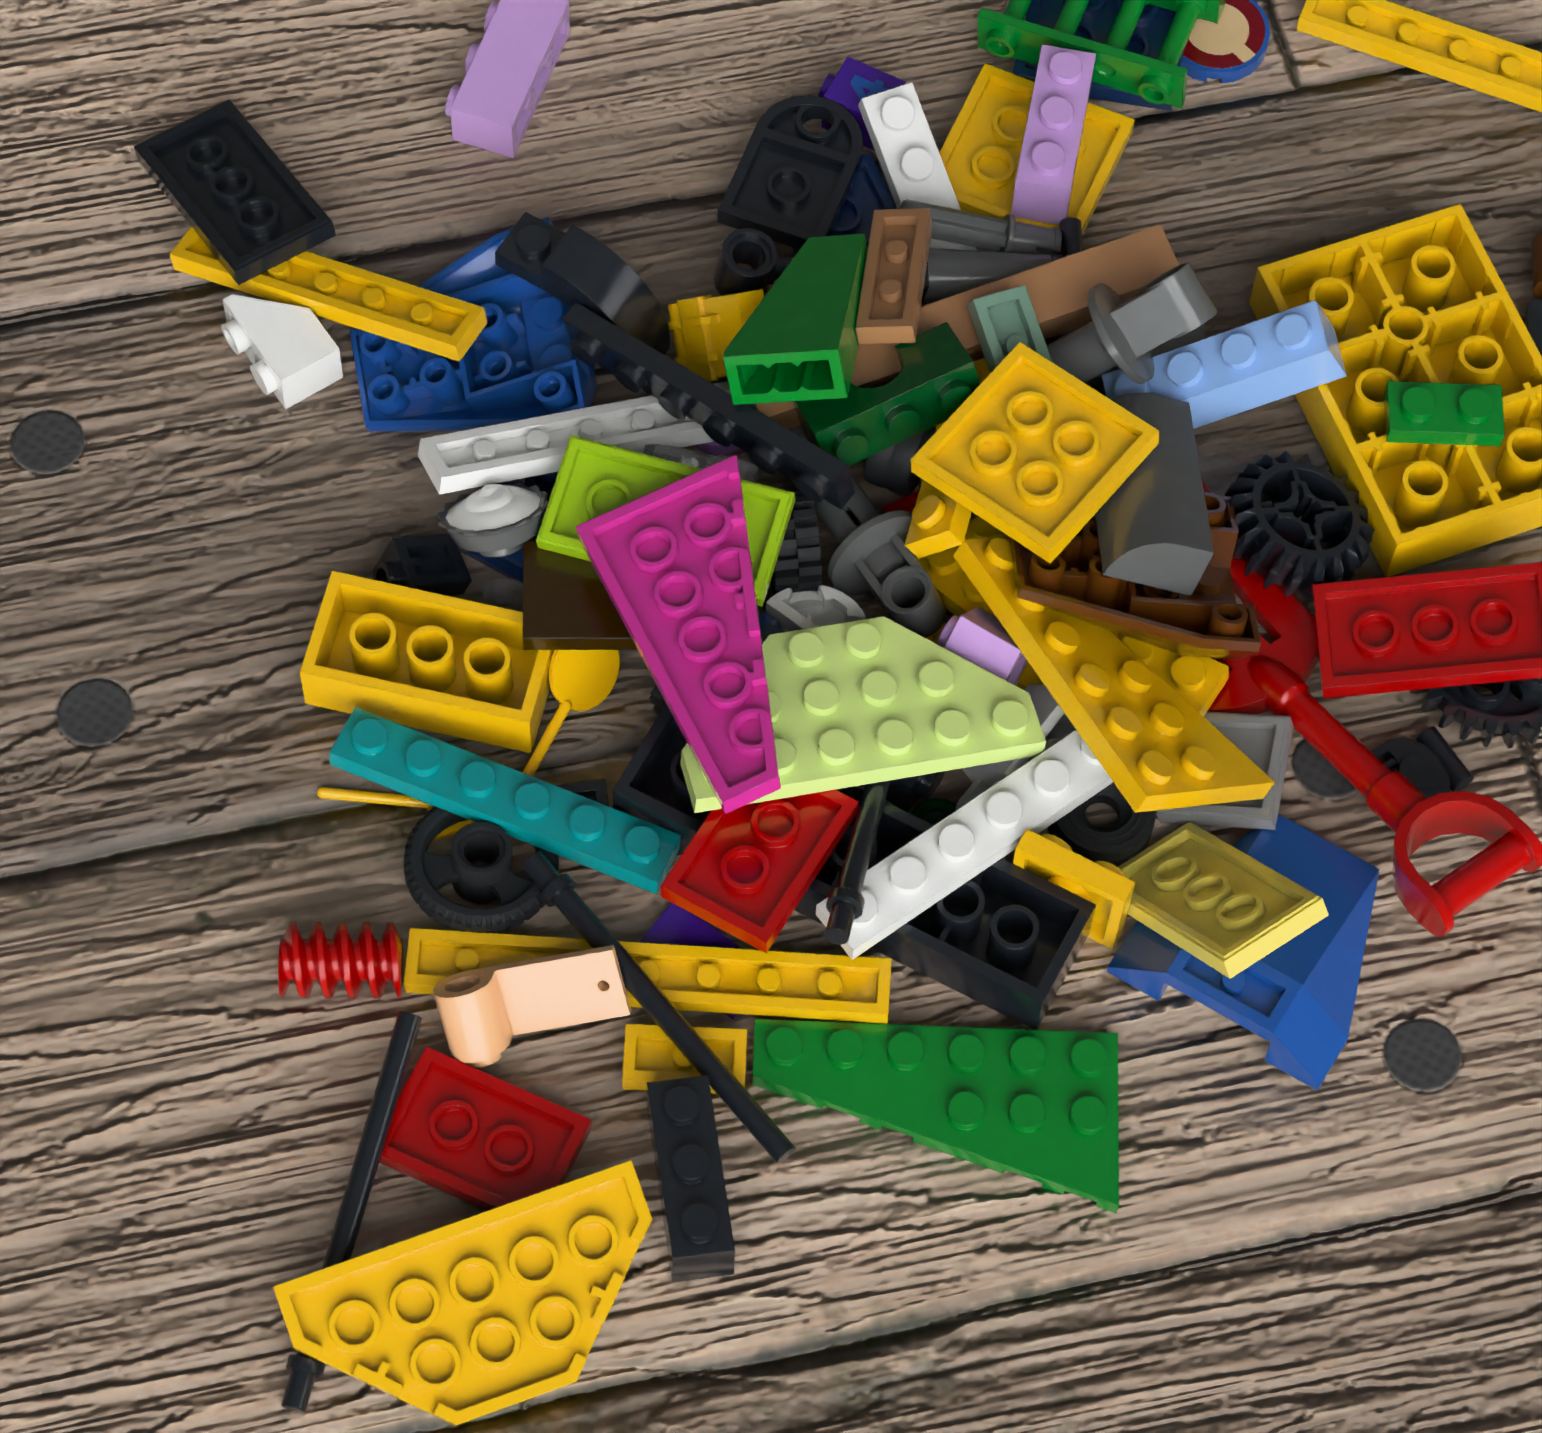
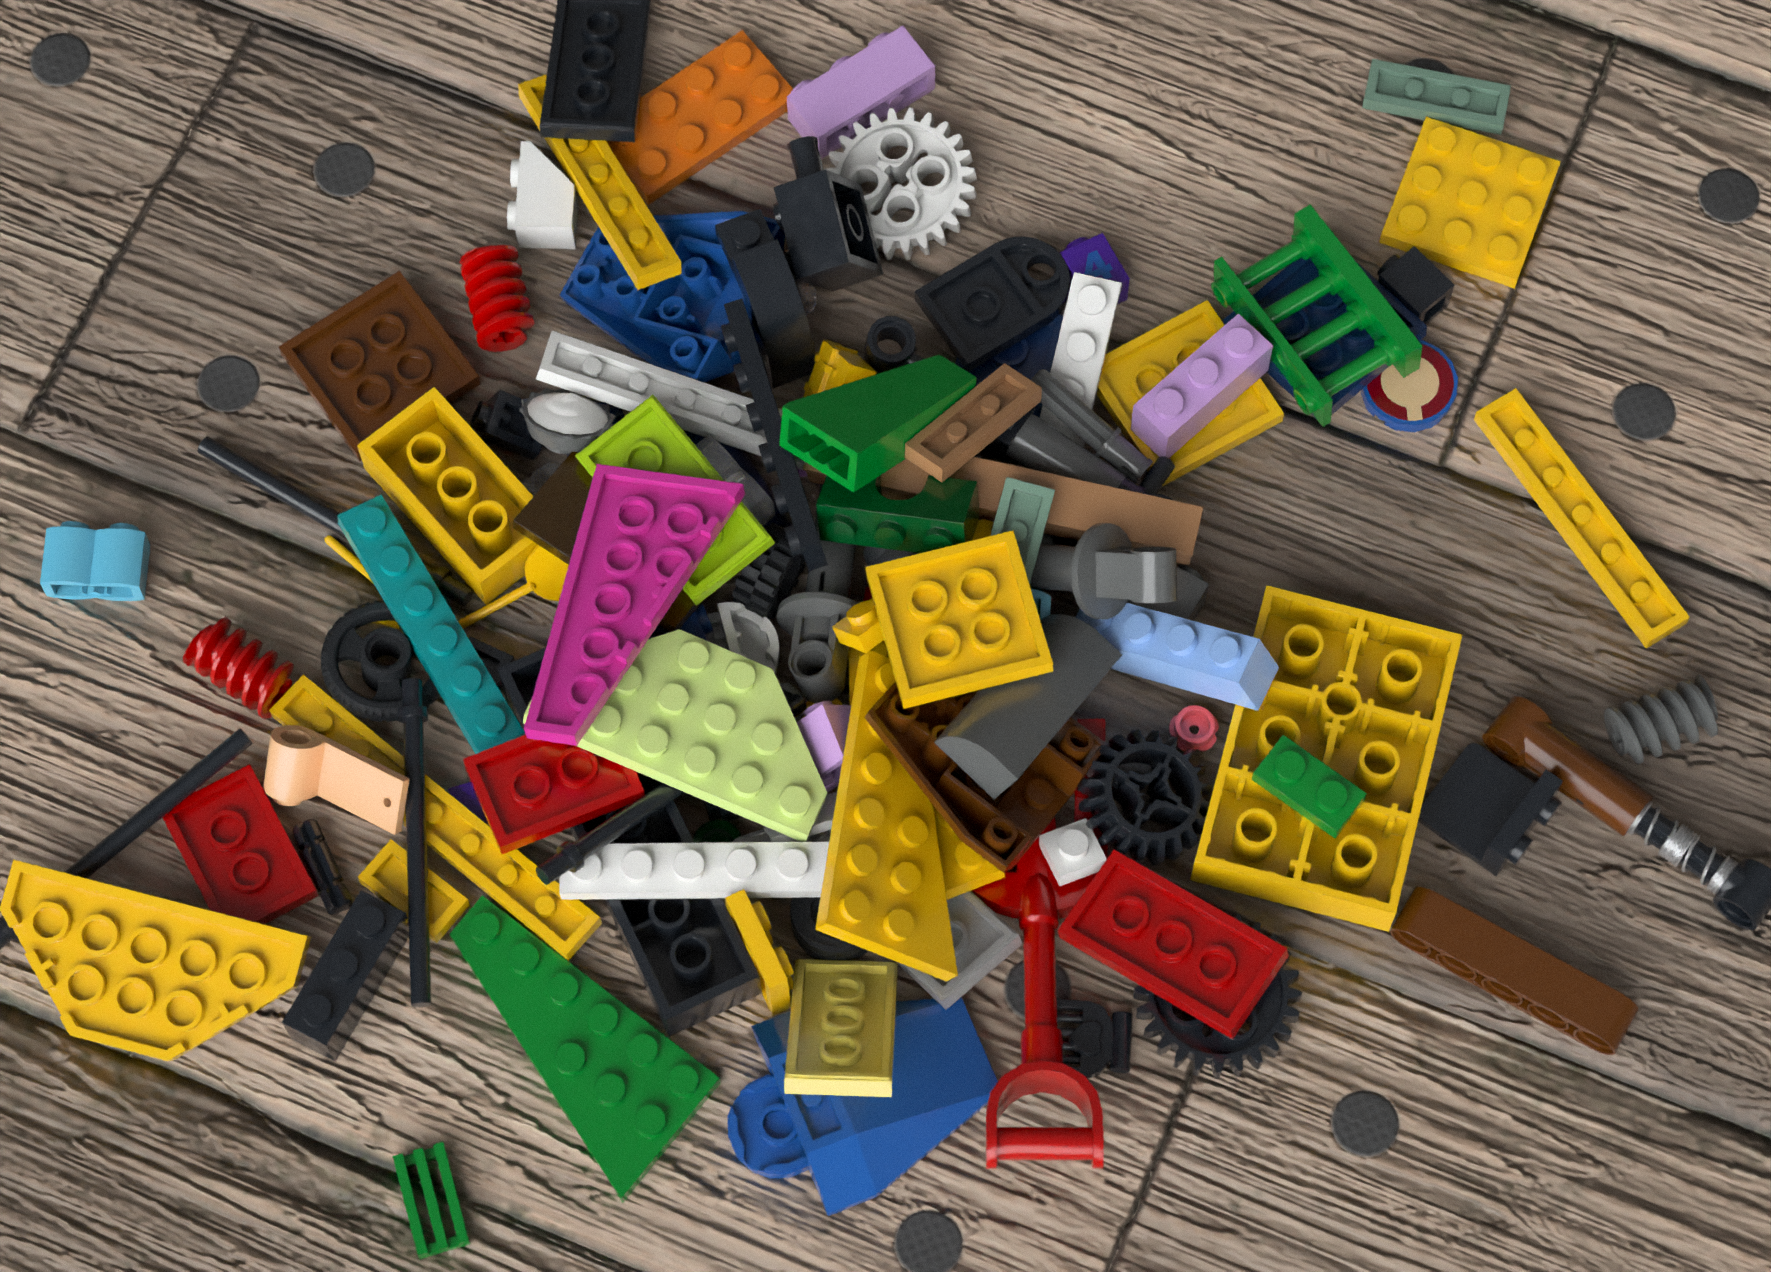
camera: 40 degrees right, 5 degrees up
(105, 960) = (95, 562): none -> medium azure brick
(239, 596) = (377, 359): none -> reddish brown plate
(258, 773) = (312, 507): none -> black bar
(310, 461) = (496, 297): none -> red piece
(374, 173) = (701, 116): none -> orange plate
(584, 190) = (824, 223): none -> black brick
(609, 1115) = (322, 866): none -> black axle
(666, 132) = (933, 205): none -> white gear
(954, 1317) = (420, 1158): none -> green tile
(1199, 1049) = (764, 1132): none -> blue tile
(1279, 612) = (1072, 852): none -> white plate
(1284, 431) = (1200, 718): none -> coral plate

